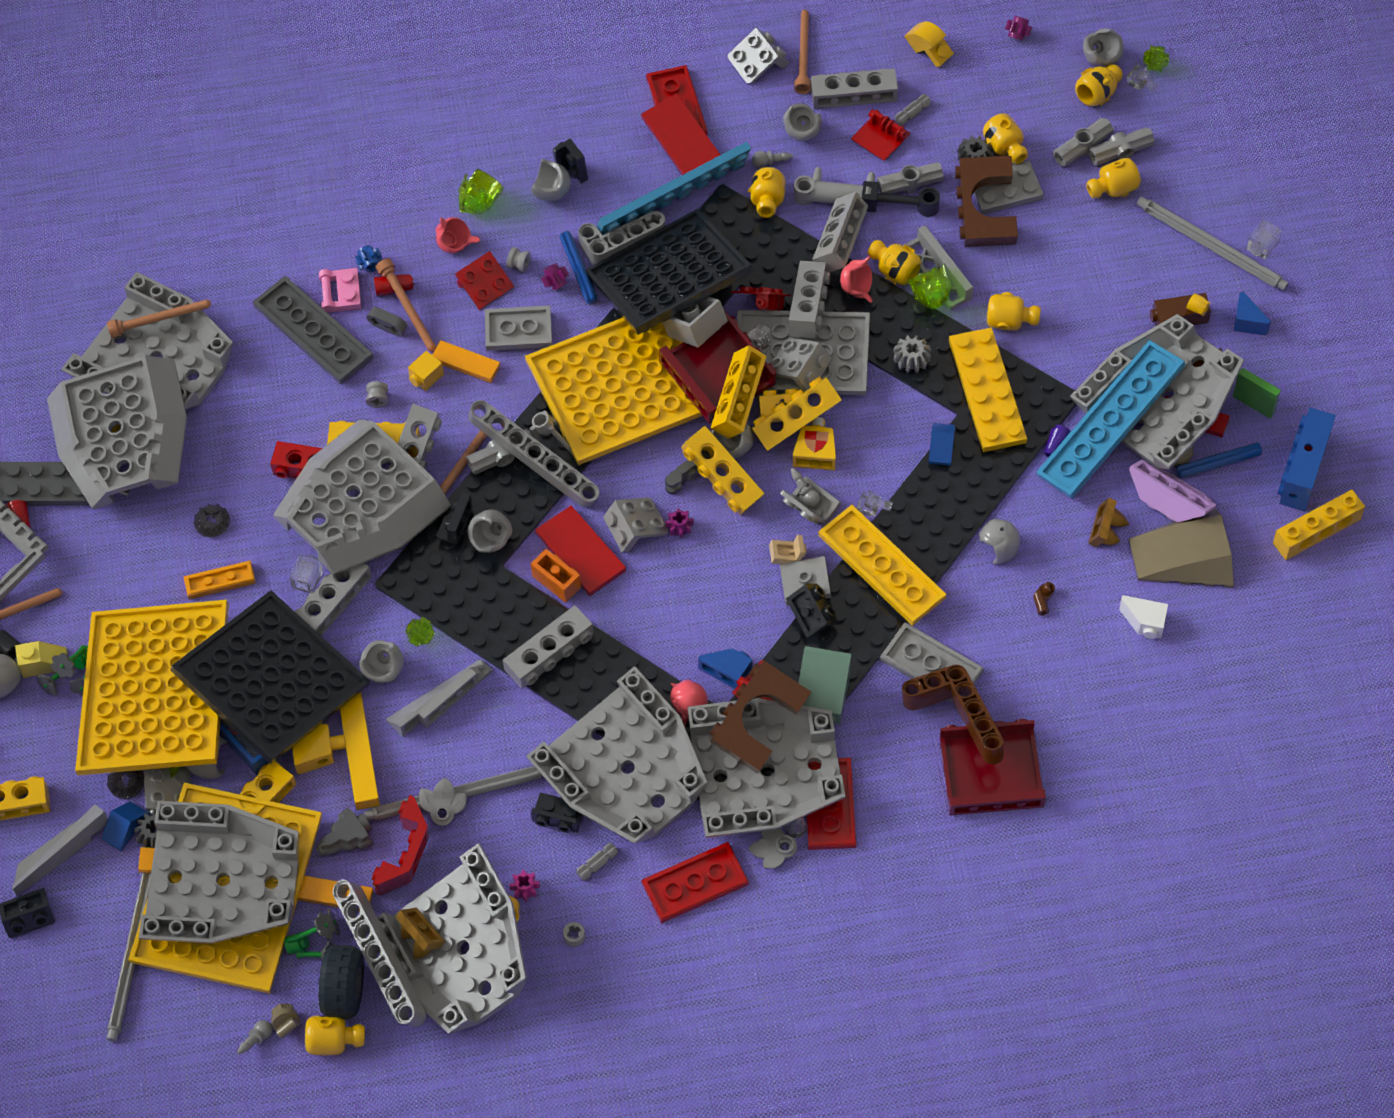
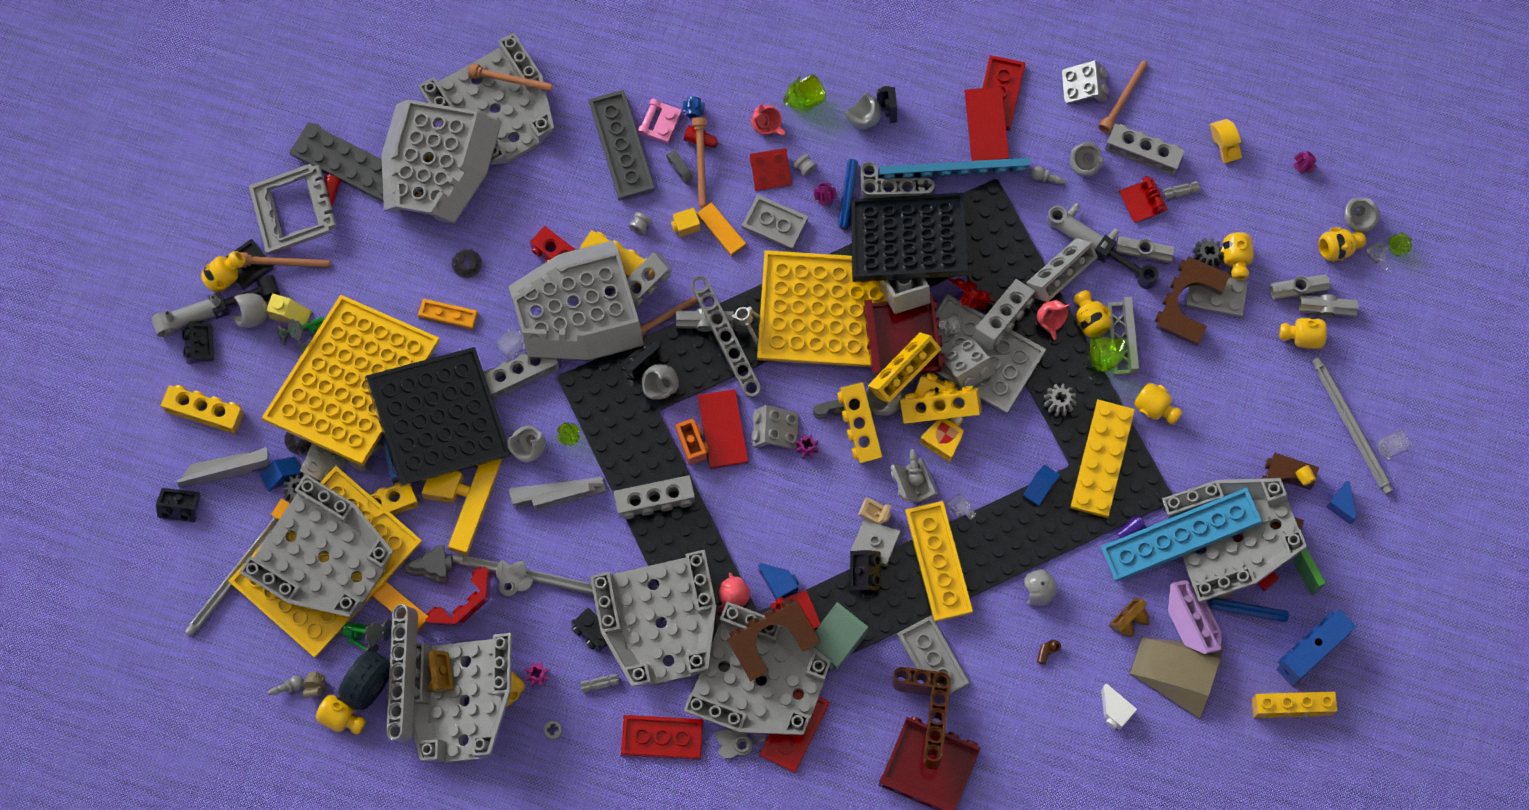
camera: 25 degrees right, 10 degrees up
(767, 190) = (1026, 205): yellow piece -> none

